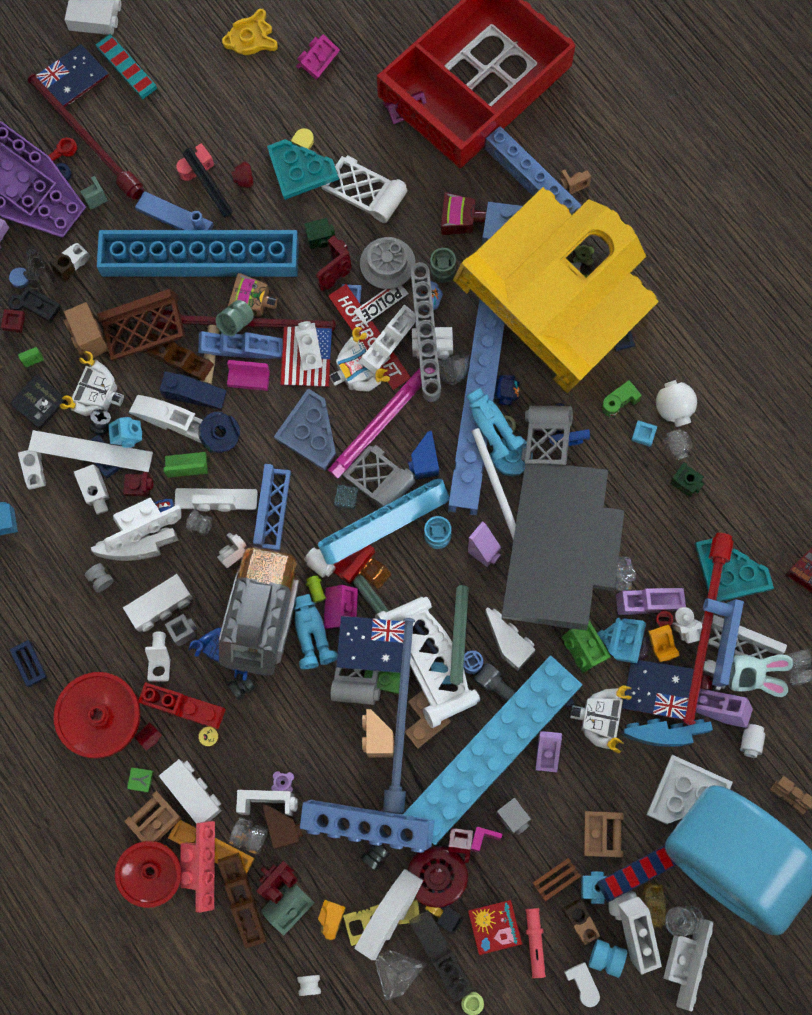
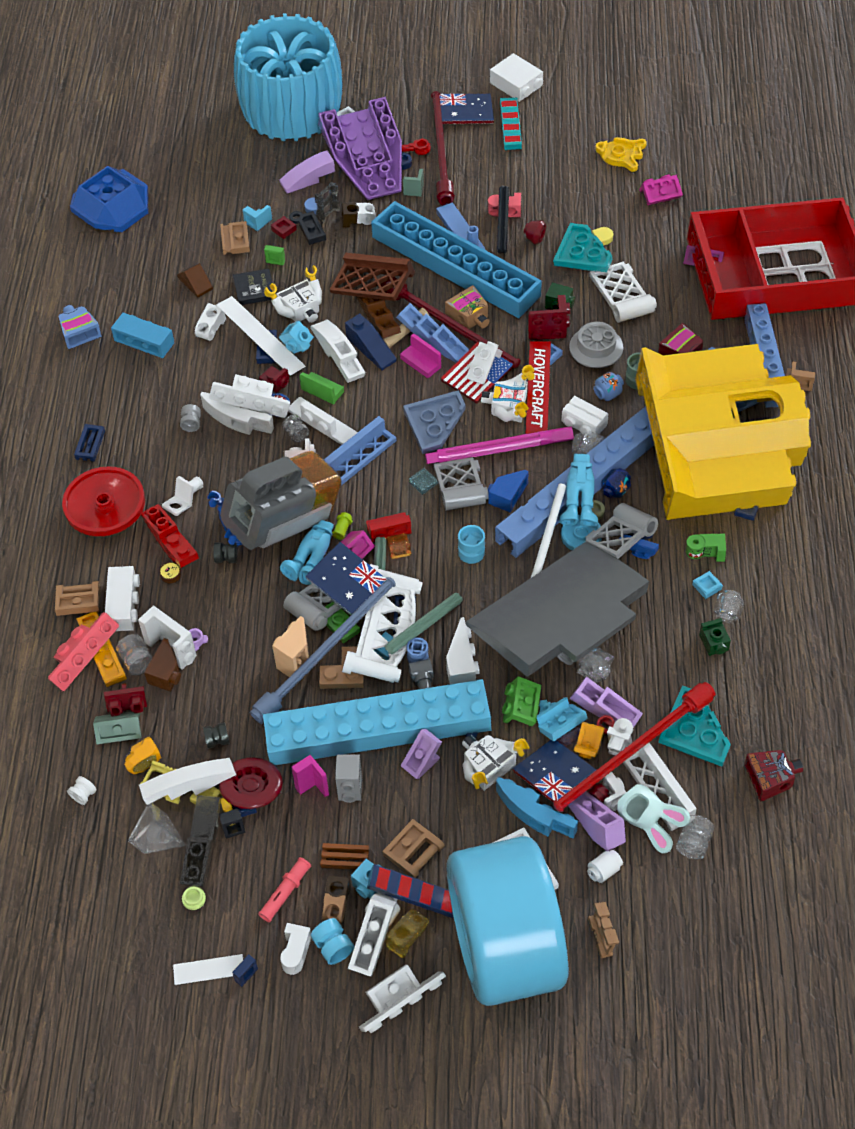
camera: 35 degrees right, 20 degrees down
(85, 330) = (327, 257): medium nougat brick -> none
(90, 480) = (240, 355): white torso -> none
(99, 422) = (284, 319): black wheel -> none
(140, 780) = (94, 568): bright green tile -> none
(144, 888) = (31, 619): red dish -> none
(148, 736) = (127, 542): dark red plate -> none
(158, 603) = (216, 460): white brick -> none
(181, 629) = (215, 481): light grey brick -> none
(223, 422) = (357, 385): dark blue plate -> none
(234, 318) = (441, 307): sand green wheel -> none
(242, 900) = (89, 696): reddish brown slope -> none
(317, 563) = (361, 509): white brick -> none
(380, 303) = (567, 370): sticker -> none
(383, 521) = (434, 507): medium azure beam -> none
(388, 339) = (550, 394): white slope -> none
(421, 828) = (230, 703): medium blue brick -> none
(425, 322) = (581, 400): light grey beam -> none
(460, 842) = (284, 764): panel -> none
(484, 546) = (498, 568): lavender slope -> none
(495, 927) = (263, 856): red tile -> none
(676, 403) = (753, 575): white brick -> none
(684, 920) = (421, 956): clear wheel -> none
(732, 613) = (665, 747): medium blue piece -> none

